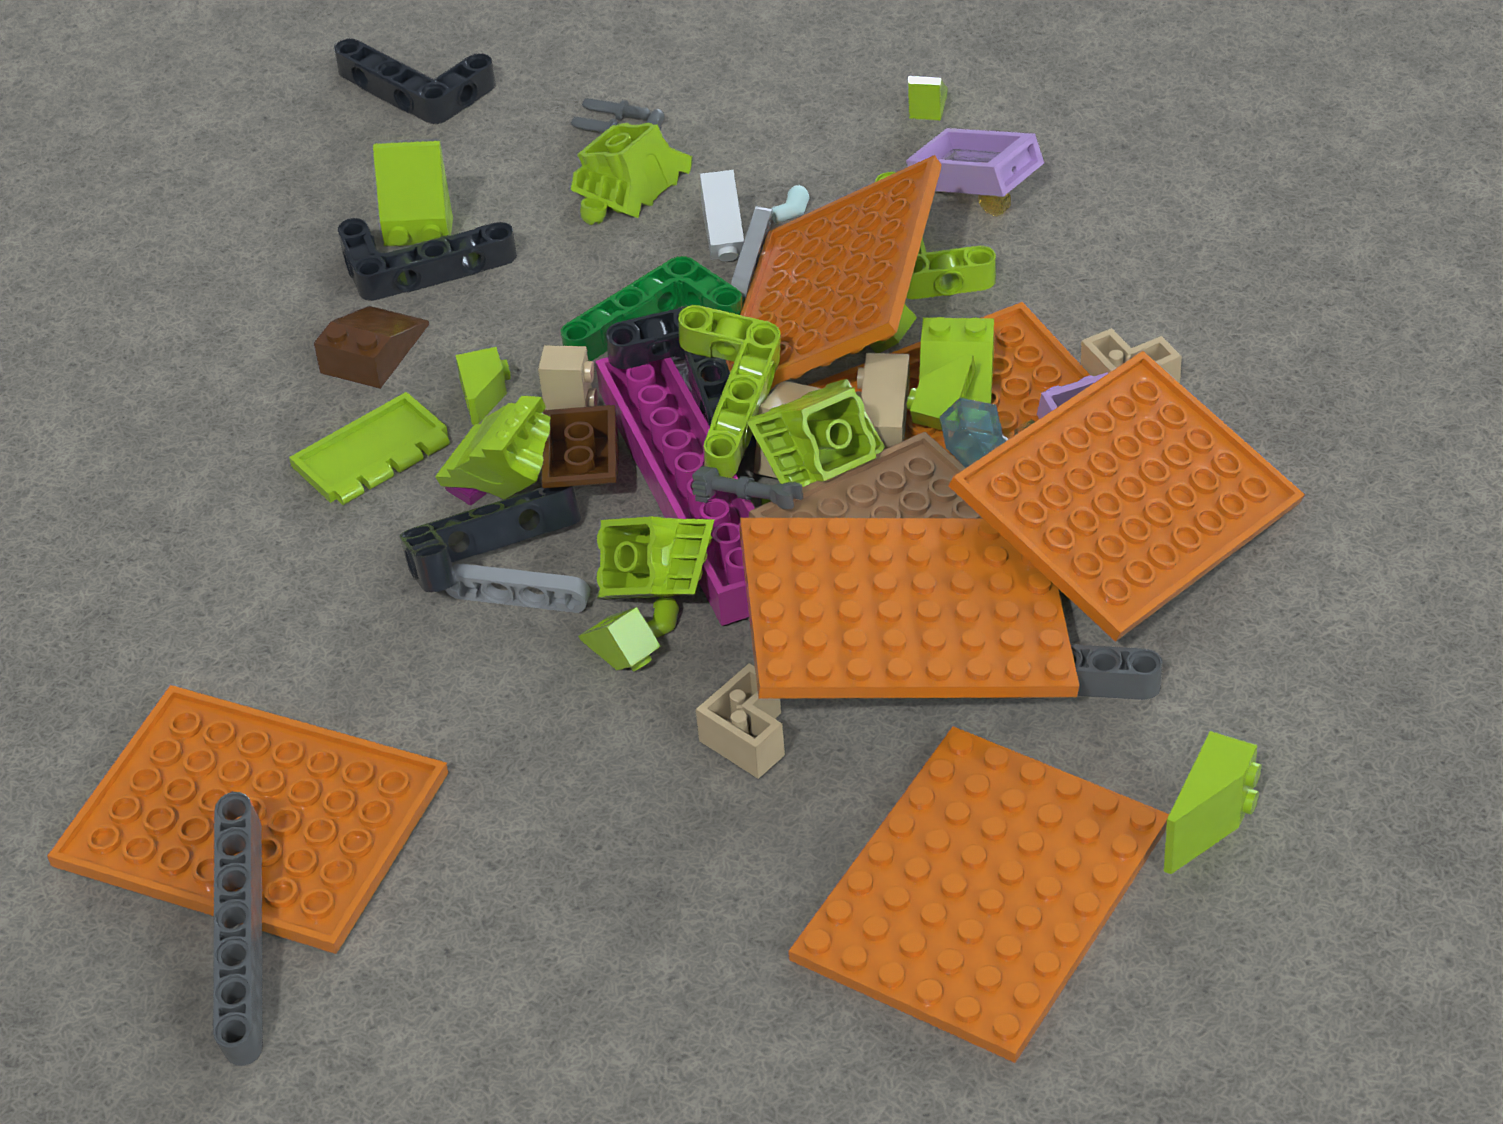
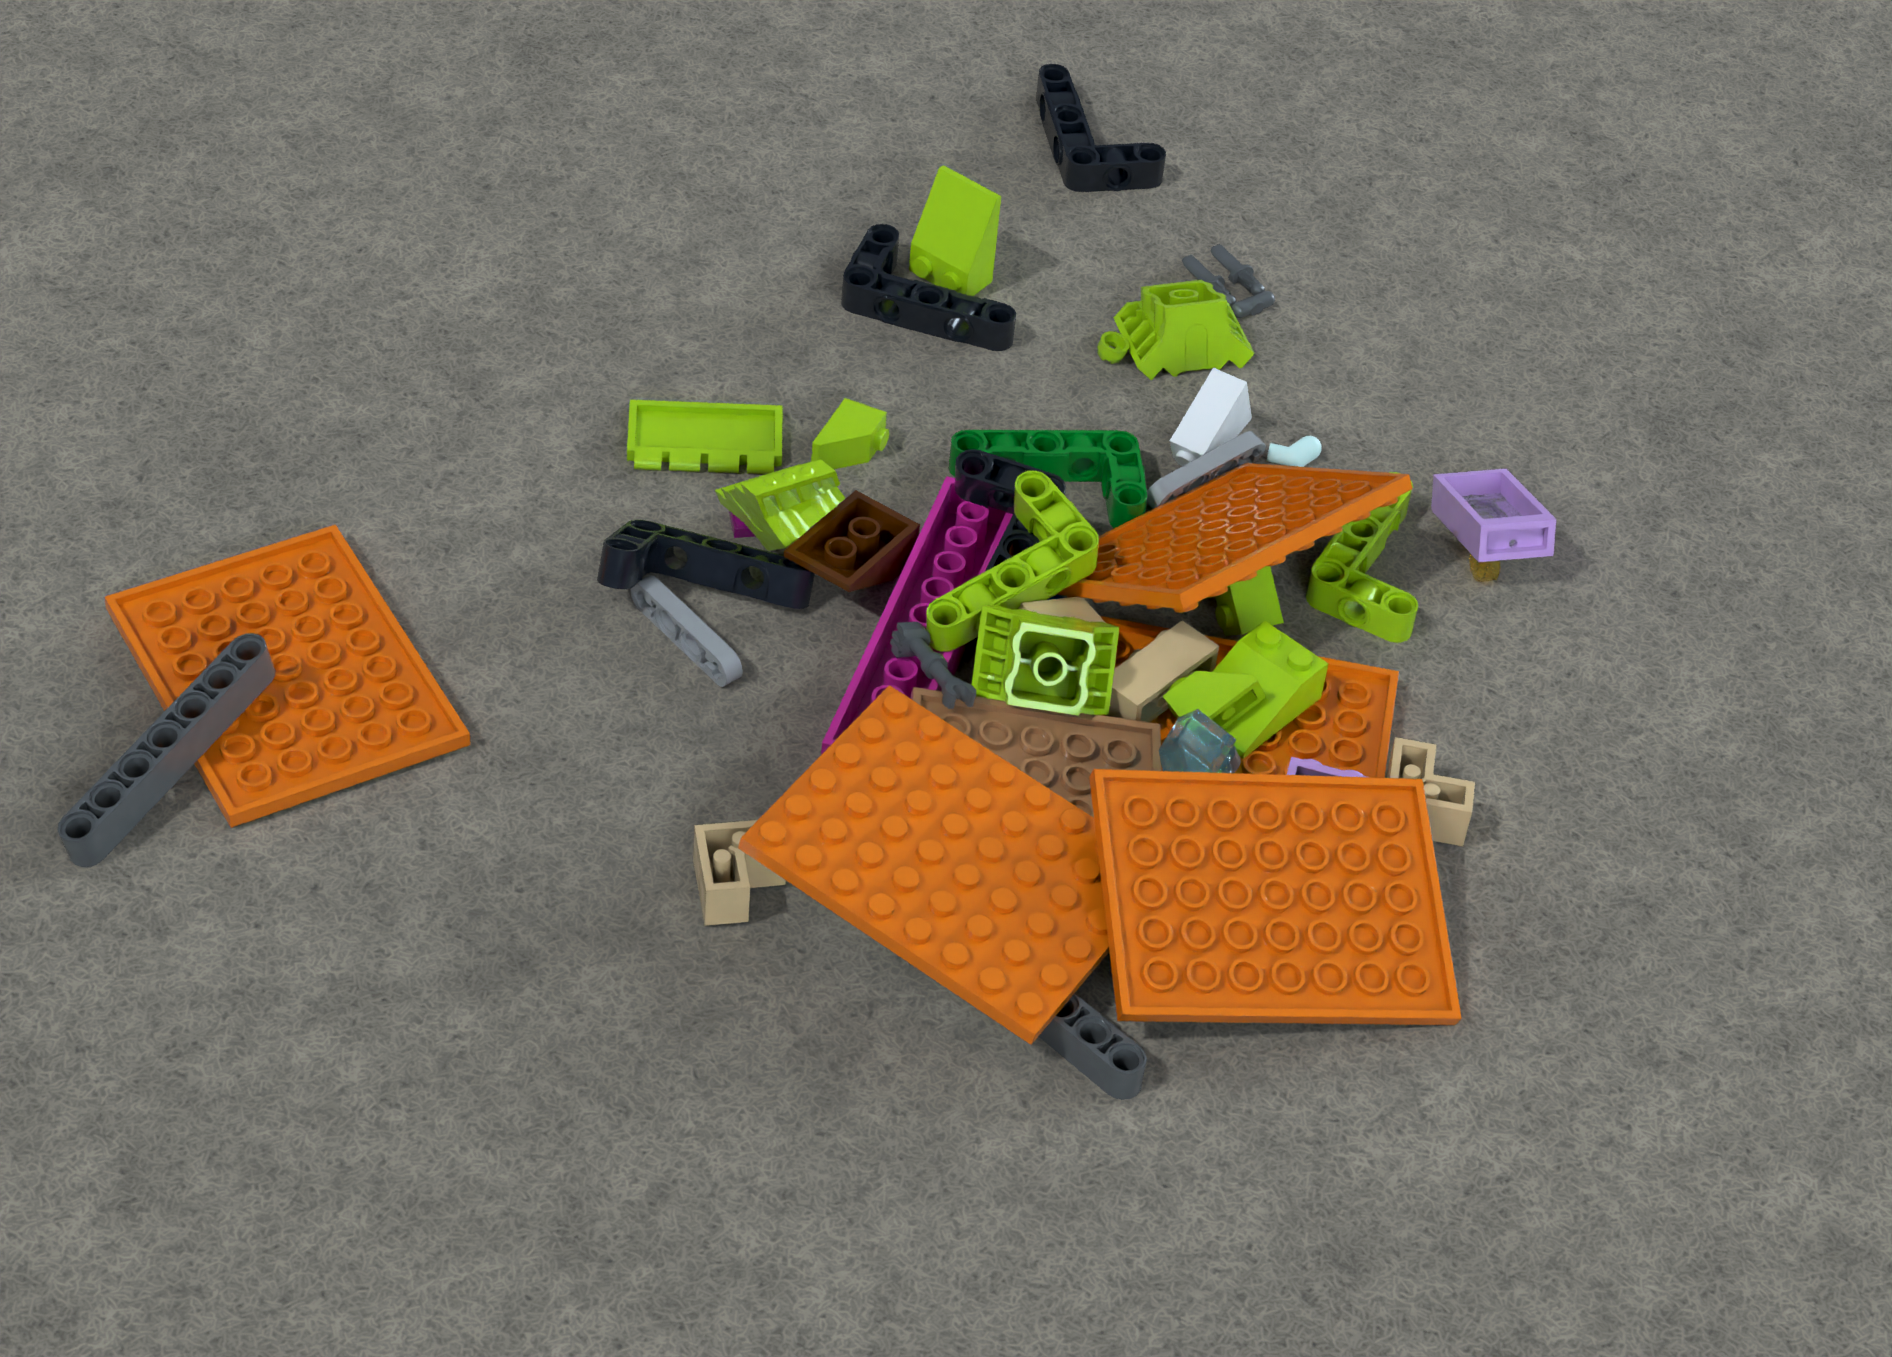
camera: 30 degrees right, 0 degrees up
(367, 345) = (797, 344): reddish brown slope -> none
(567, 377) = (908, 477): tan brick -> none
(622, 640) = (718, 733): lime slope -> none
(651, 556) = (801, 672): lime slope -> none
(664, 616) = (775, 739): lime arm -> none
(926, 98) = (1527, 432): lime slope -> none
(981, 892) = (781, 1152): orange plate -> none
(1212, 799) = (1038, 1215): lime slope -> none

